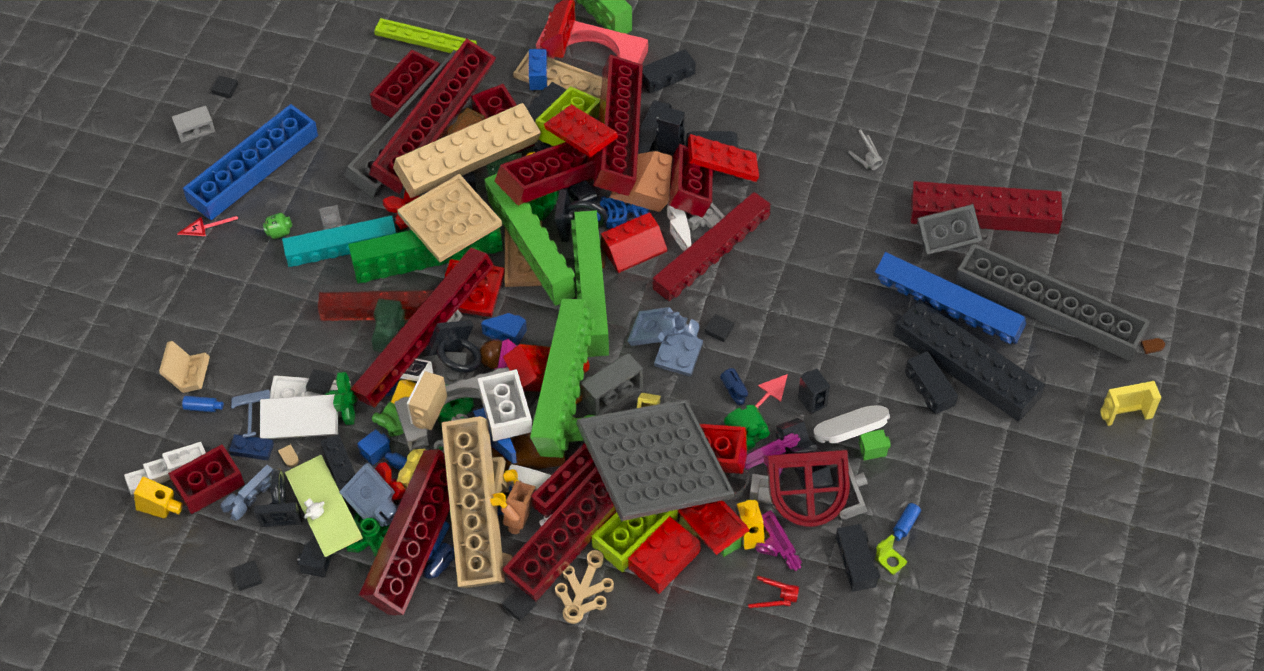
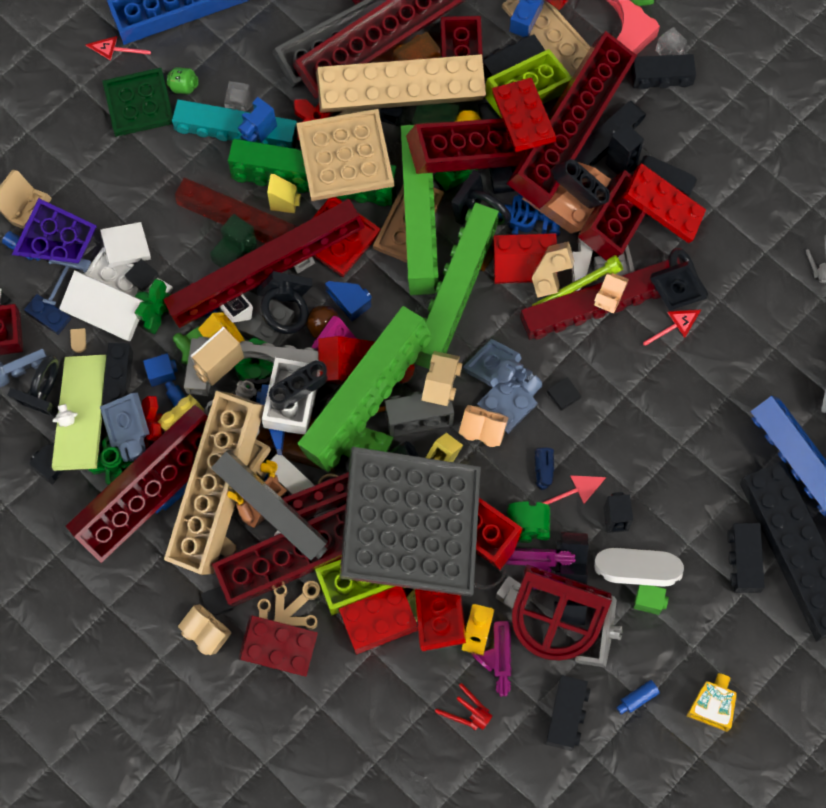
camera: 25 degrees right, 15 degrees up
(229, 378) = (54, 234): none -> dark purple wedge
(247, 256) = (138, 102): none -> dark green plate
(292, 365) = (125, 244): none -> white tile
(364, 223) = (258, 123): none -> blue hips
(409, 274) = (282, 195): none -> light yellow slope
(439, 561) = (162, 522): dark blue hinge -> none
(509, 396) = (303, 375): none -> black beam
(521, 628) = (204, 630): none -> tan brick
(533, 492) = (270, 505): none -> dark grey brick
(592, 609) = (278, 645): none -> dark red brick
(620, 345) = (440, 378): none -> tan brick
(653, 162) = (581, 184): none -> black beam
(658, 230) = (555, 259): none -> tan brick
(662, 48) = (671, 43): none -> clear brick
(669, 375) = (483, 426): none -> light nougat brick
(708, 213) = (612, 265): none -> lime piece
(718, 234) = (611, 292): none -> light nougat brick
(767, 207) = (679, 283): none -> black tile
(782, 238) = (683, 321): none -> piece
(885, 551) = (598, 719): lime bracket -> none
(969, 499) = (715, 704): none -> torso

